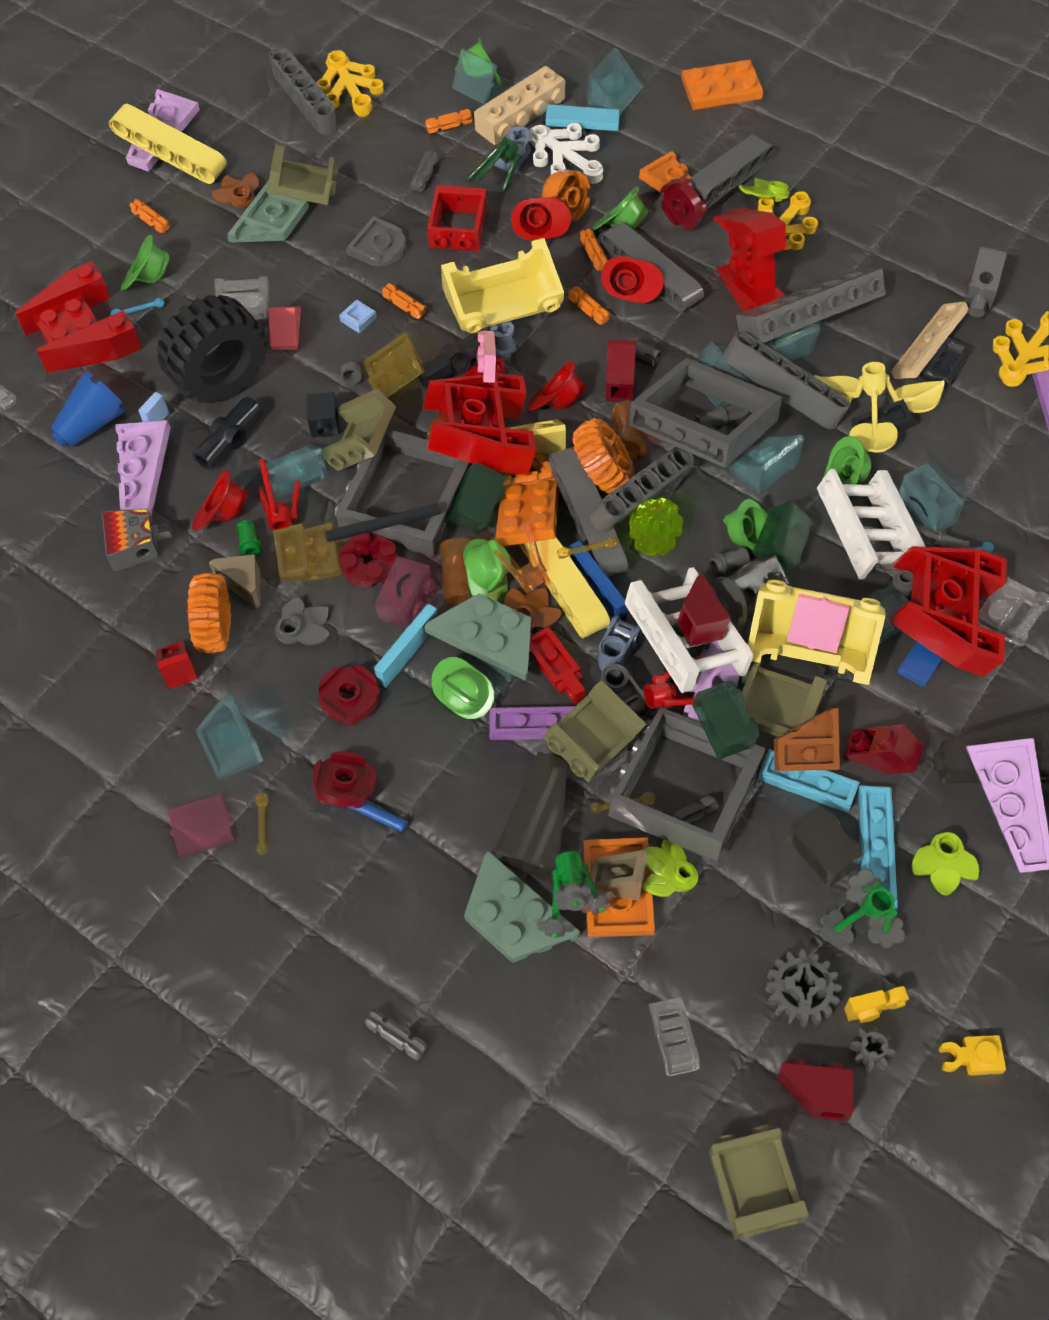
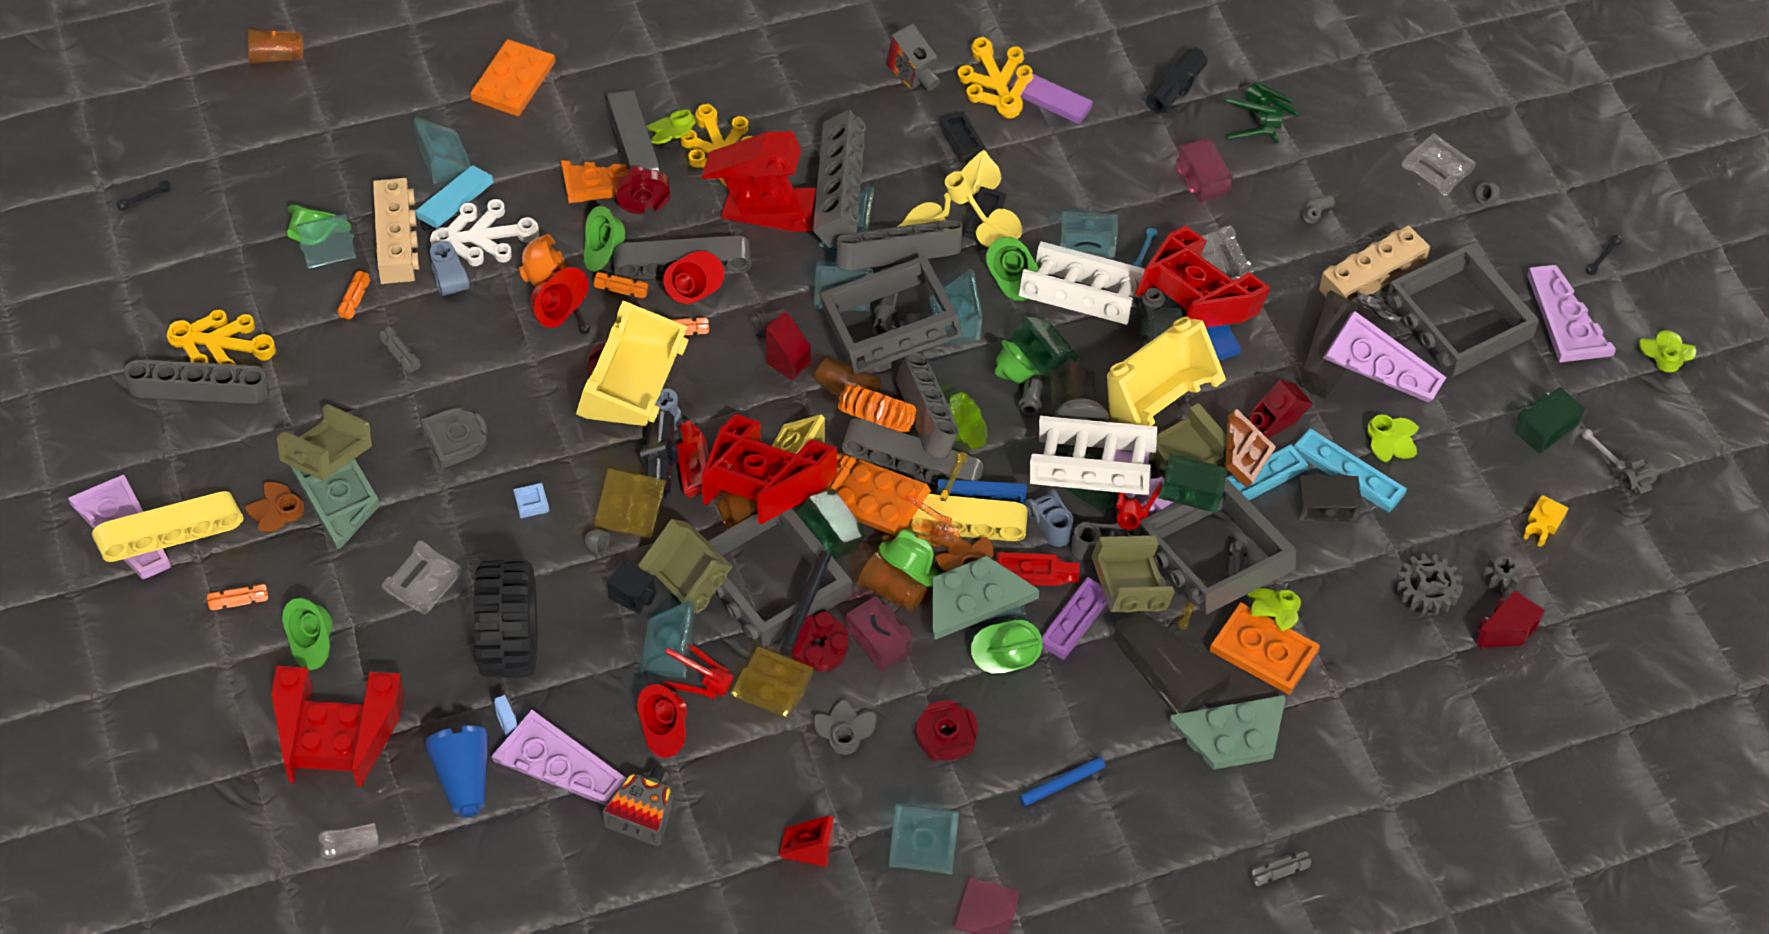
camera: 60 degrees left, 5 degrees down
(159, 302) = (341, 689): dark azure hinge -> none
(209, 613) = (791, 782): orange gear -> none
(227, 433) = (585, 672): black piece -> none
(241, 576) = (762, 745): dark tan slope -> none
(248, 541) = (720, 719): green pin -> none
(261, 800) = (998, 853): clear yellow hinge -> none
(284, 327) = (485, 549): coral slope -> none
(339, 793) = (1032, 789): dark red plate -> none
(404, 301) = (547, 455): orange axle -> none
(404, 647) = (934, 660): medium azure tile -> none
(447, 200) = (478, 337): red window -> none
(486, 355) = (701, 422): bright pink plate -> none
(506, 151) = (460, 272): dark green plant -> none
(560, 391) = (760, 398): red piece -> none
(573, 897) = (1243, 661): plant -> none
(620, 874) = (1267, 632): dark tan slope -> none
(681, 1057) = (1413, 699): clear slope -> none
(702, 614) = (1095, 433): dark red slope -> none
(756, 1182) = (1550, 706): olive panel -> none
(818, 623) = (1156, 371): bright pink piece -> none
(870, 1005) = (1471, 555): yellow plate -> none
(875, 903) = (1412, 493): dark grey plant -> none
(929, 340) = (932, 132): tan tile -> none
(940, 539) = (1133, 252): dark grey axle -> none

